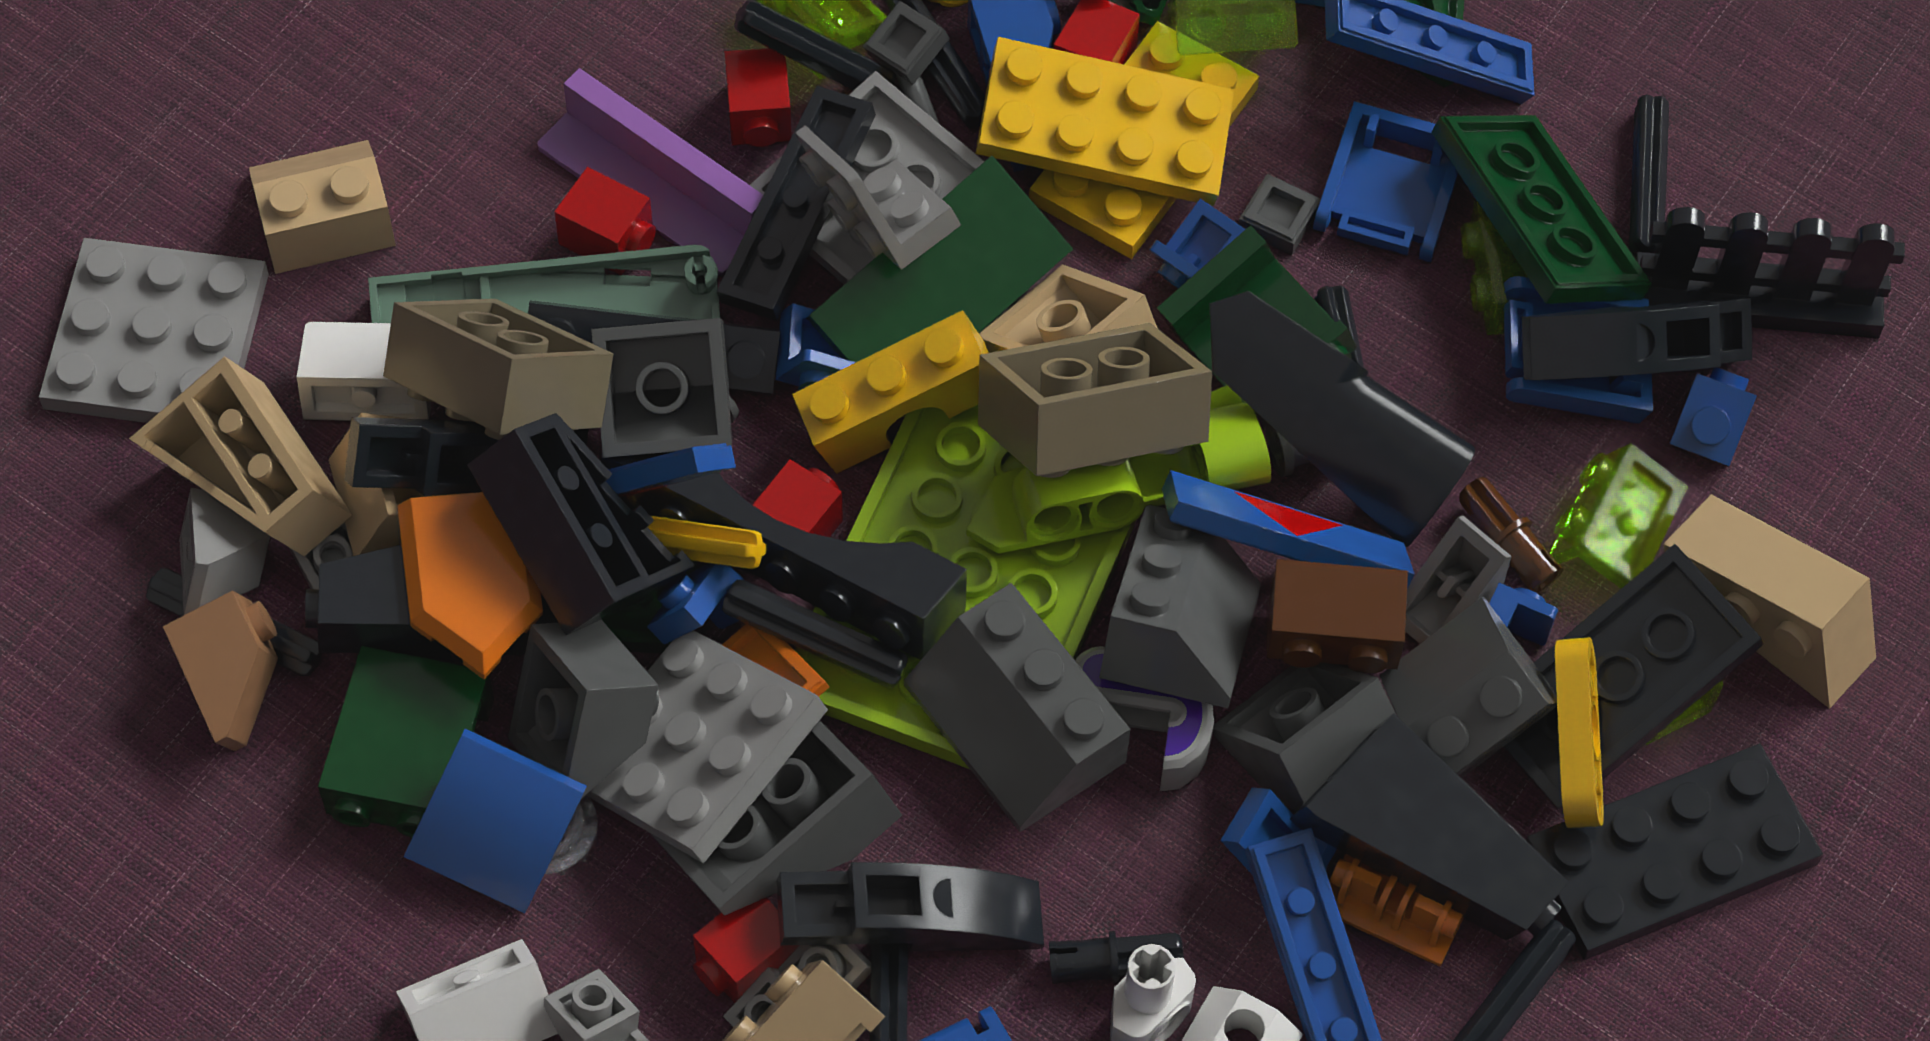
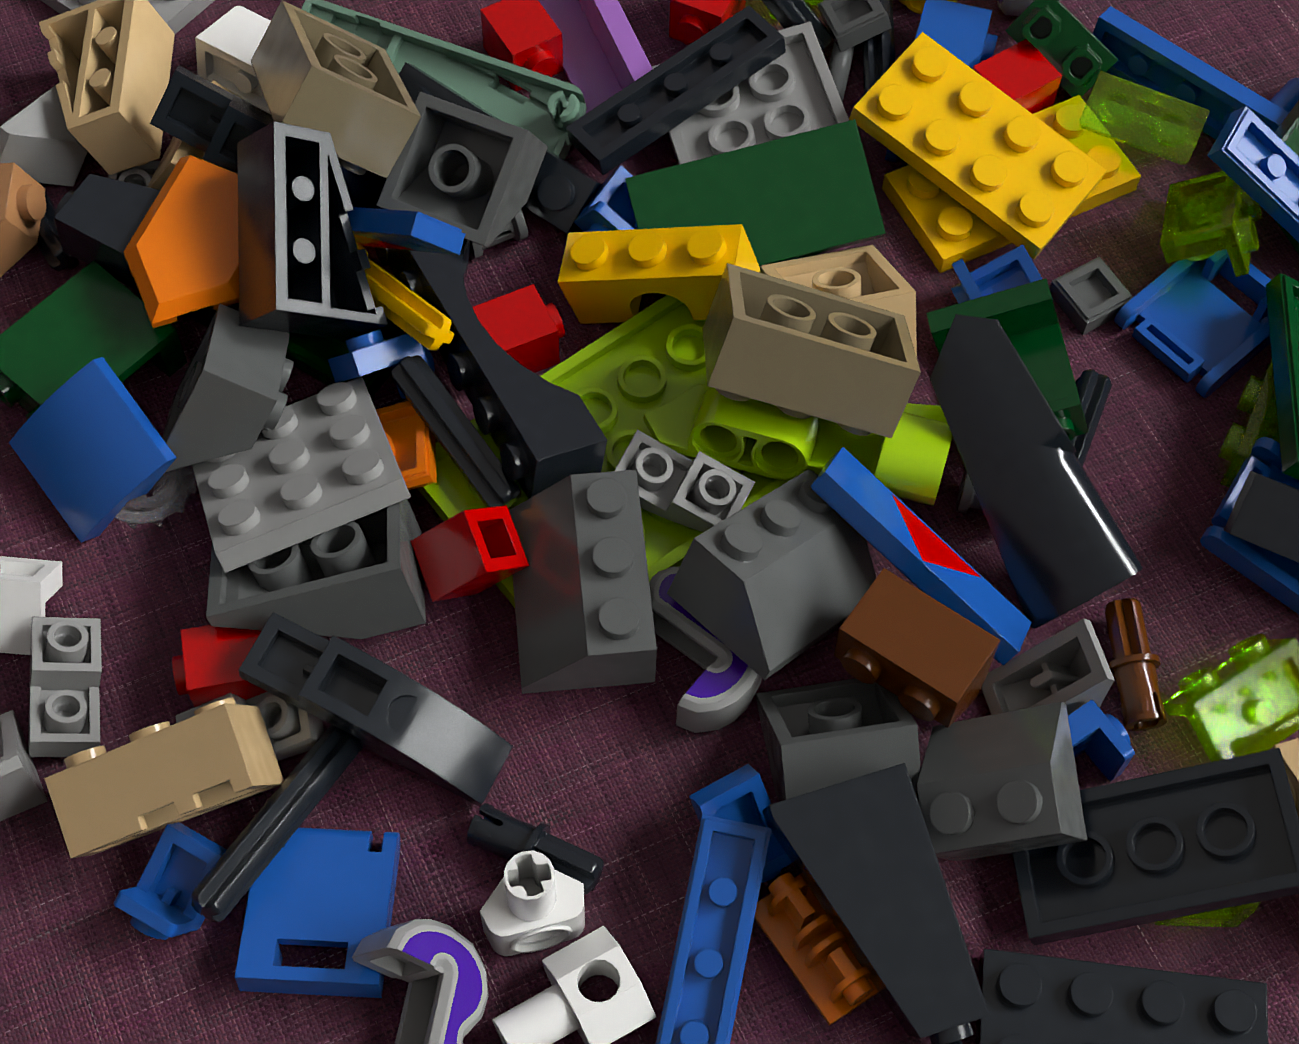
camera: 30 degrees right, 0 degrees up
(887, 211) = (739, 129): light grey bracket -> none
(903, 733) = (469, 552): none -> red brick
(1052, 579) = (682, 489): none -> light grey slope
(1348, 93) = (1210, 217): none -> clear neon green bracket
(1579, 733) = (1083, 878): yellow beam -> none

